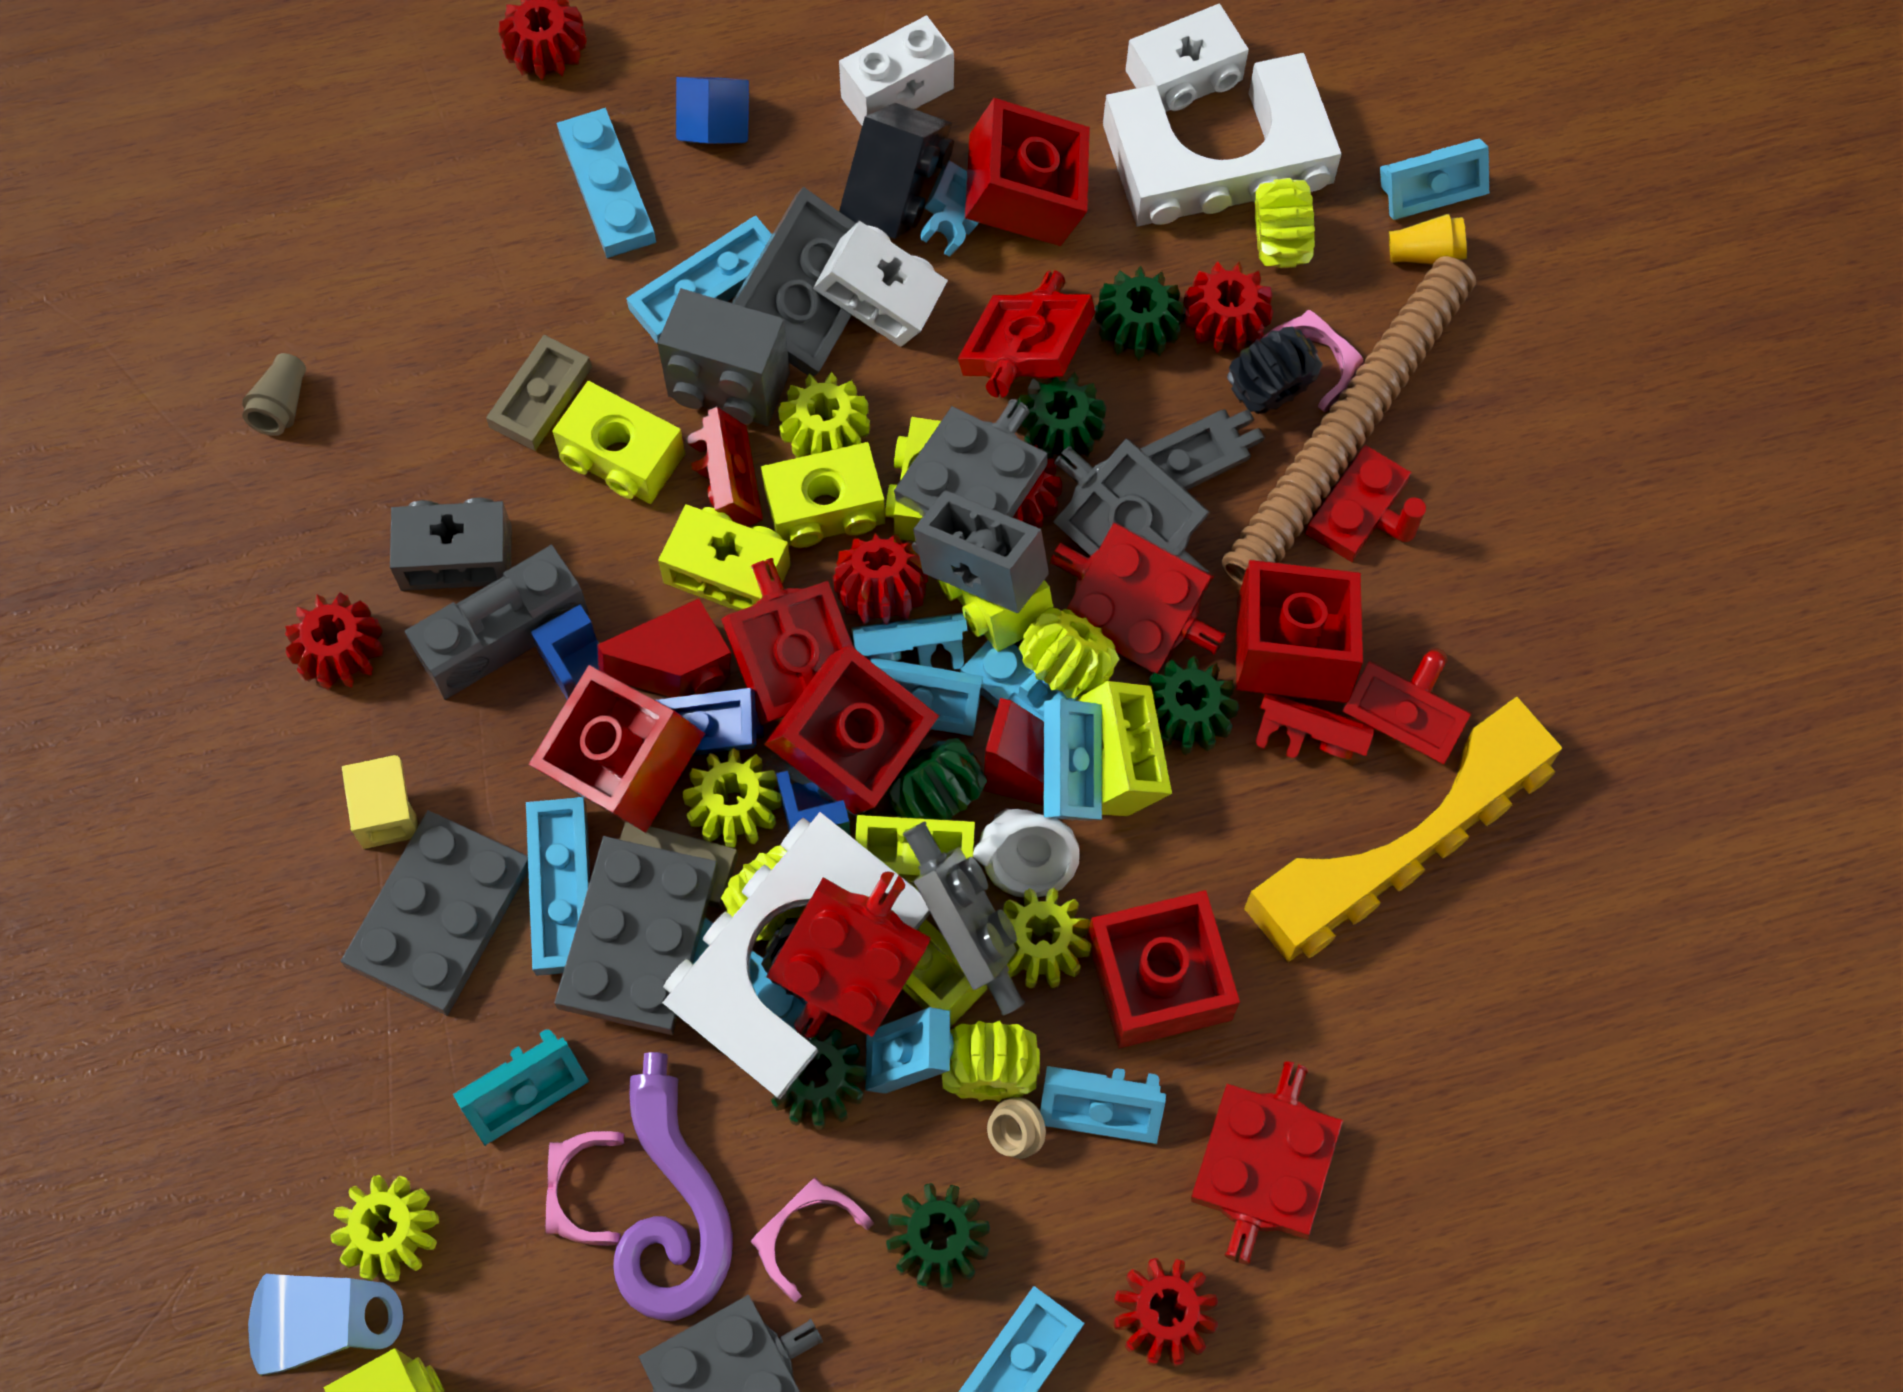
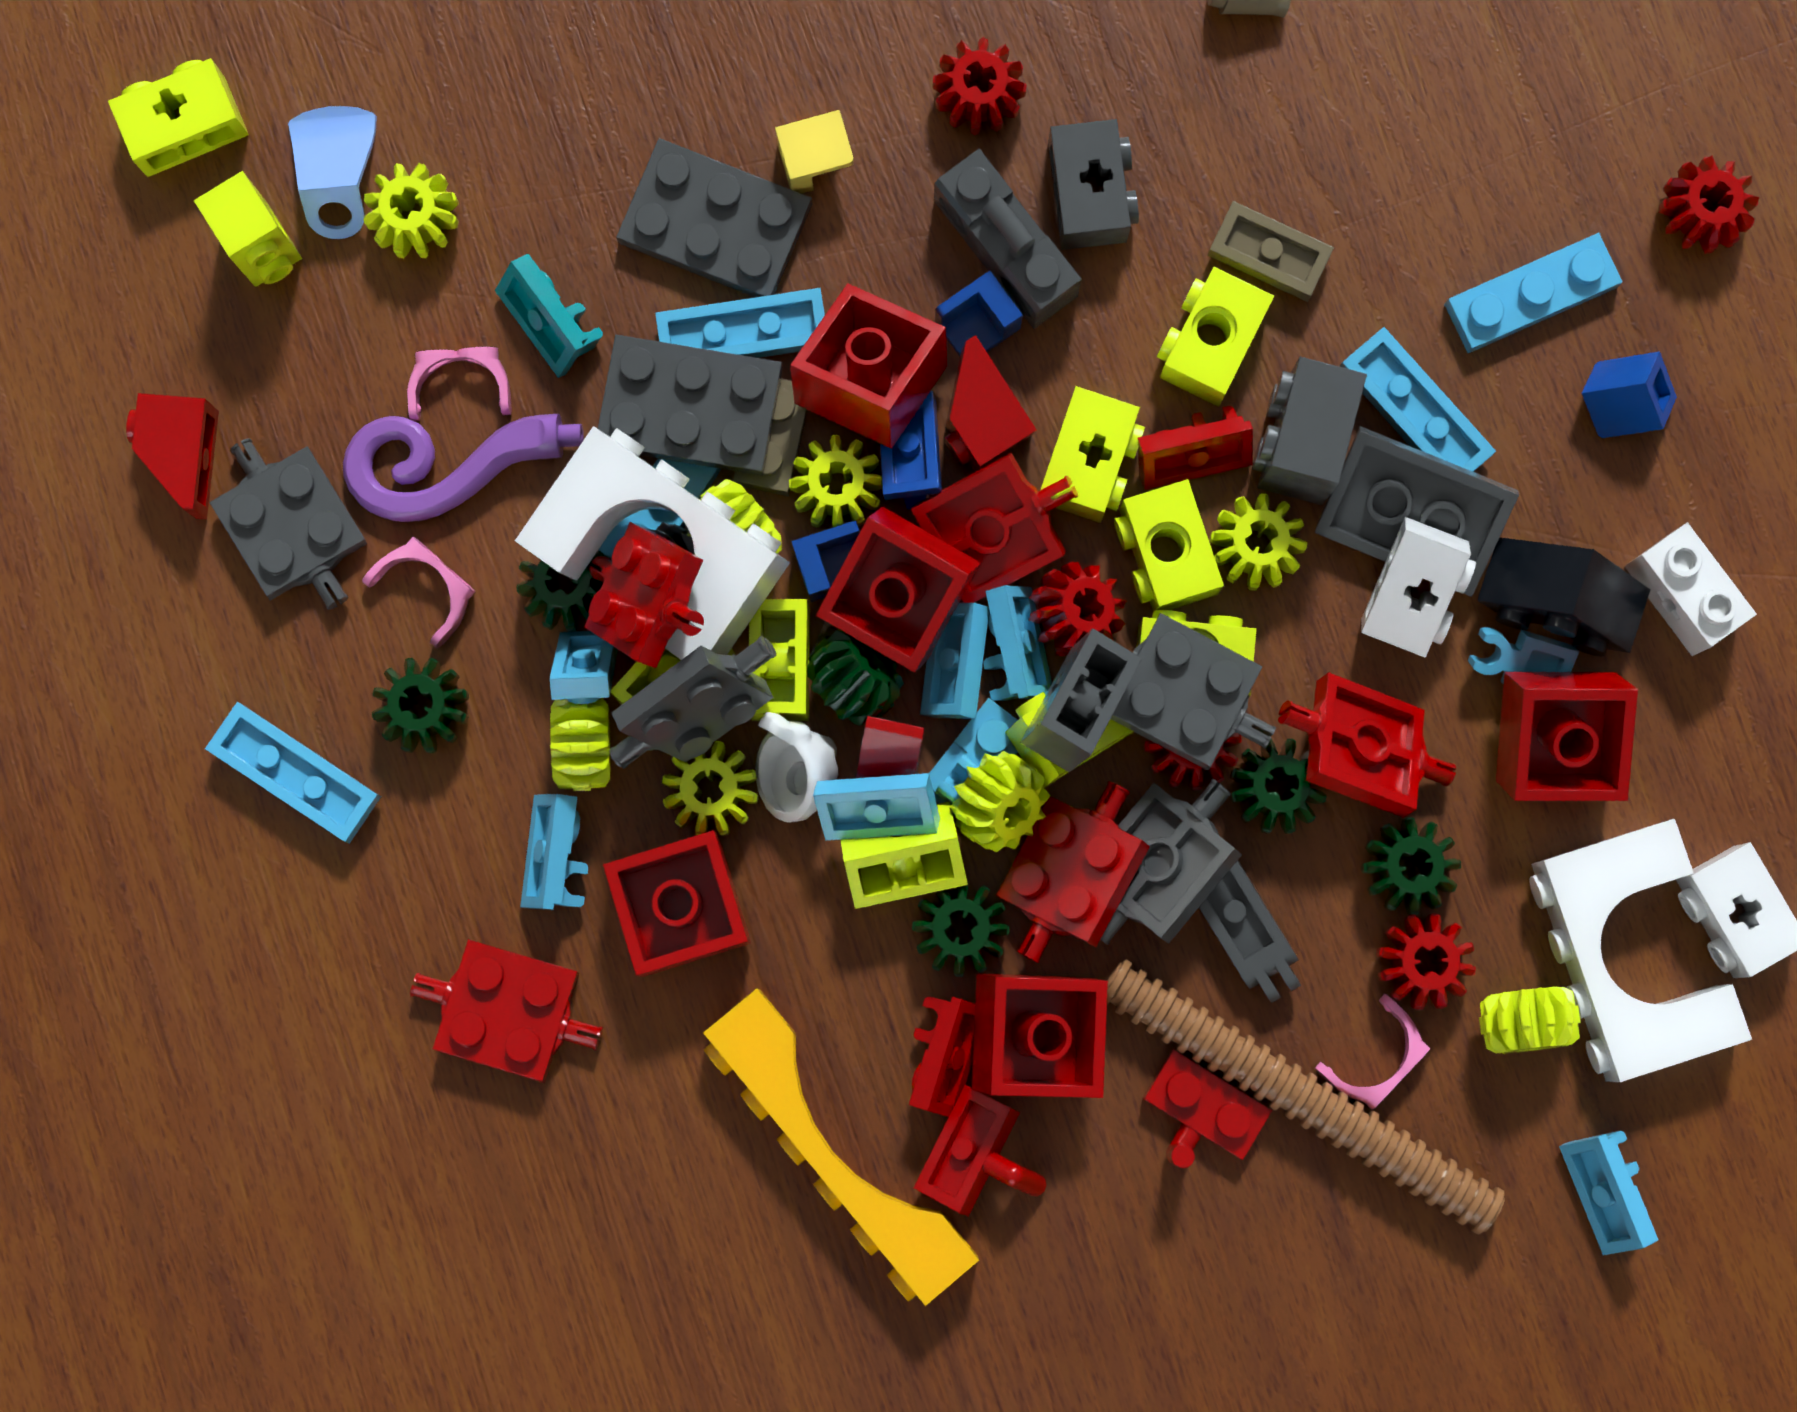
camera: 90 degrees right, 15 degrees up
(1004, 1128) = (524, 773): tan plate -> none
(1184, 1304) = (352, 897): red gear -> none
(1274, 370) = (1344, 1010): black gear -> none
(1429, 241) = (1528, 1185): yellow cone -> none

